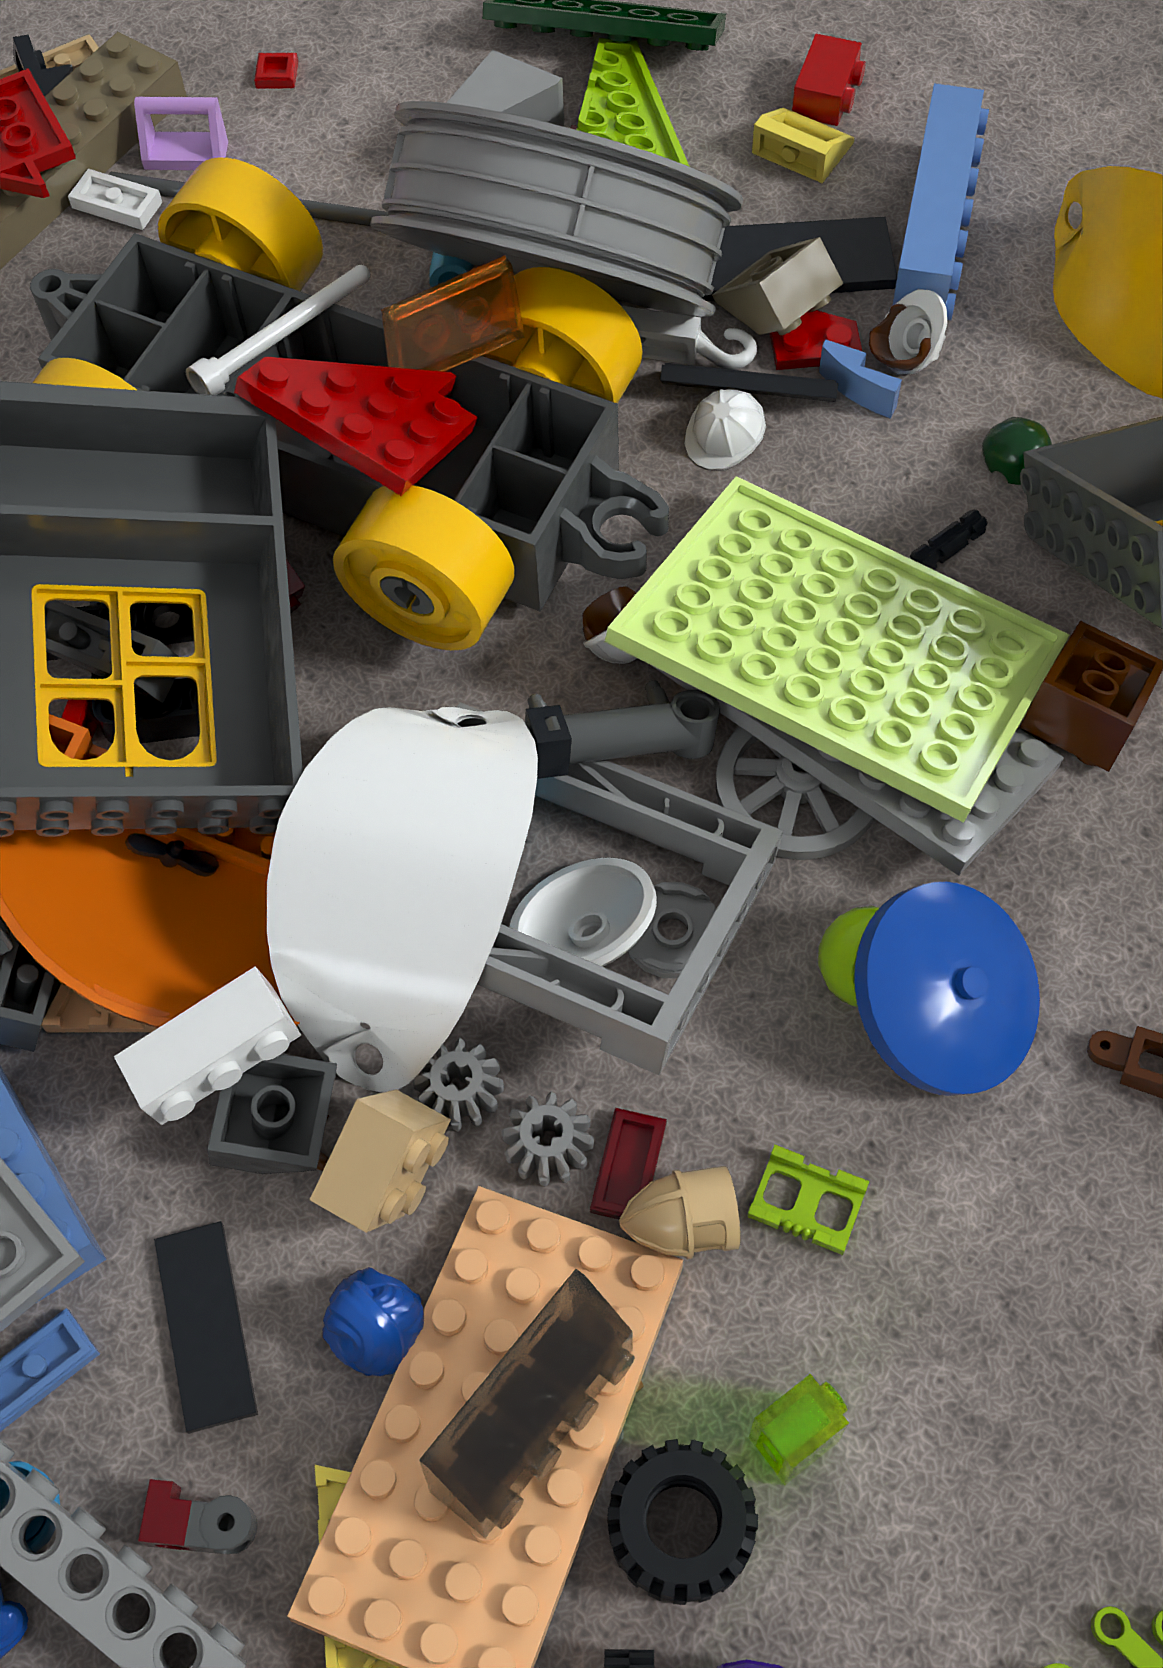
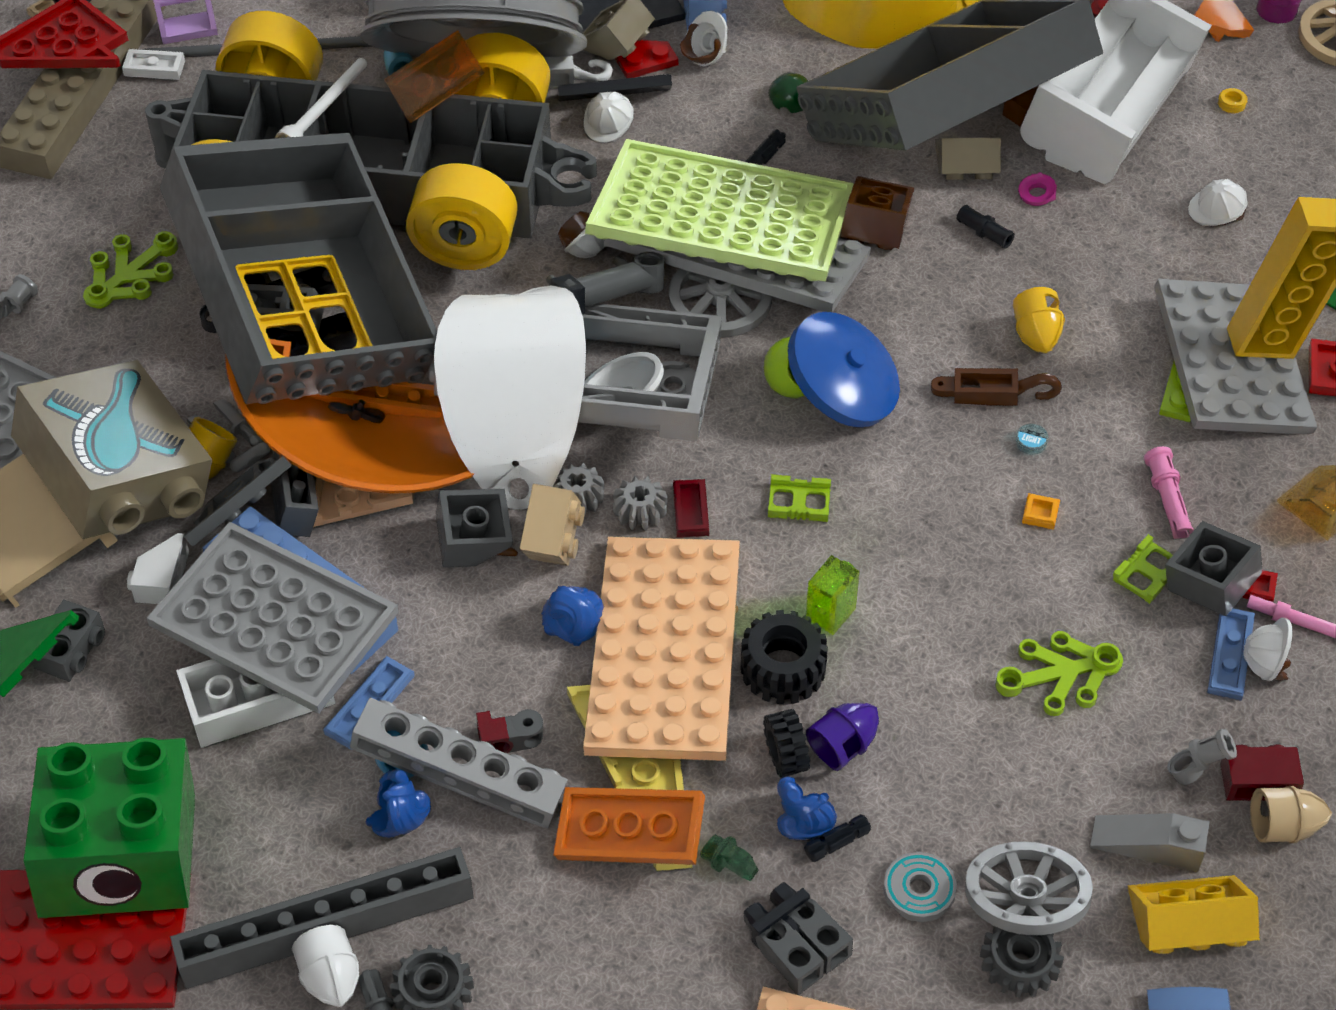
camera: 20 degrees left, 10 degrees down
(205, 1327) = (473, 646): black piece -> none
(207, 1047) = (429, 488): white brick -> none
(372, 417) = (406, 131): red wing -> none
(529, 1406) = (683, 608): clear smoke slope -> none
(685, 1213) = (731, 514): tan helmet -> none
(855, 381) = (683, 75): medium blue slope -> none

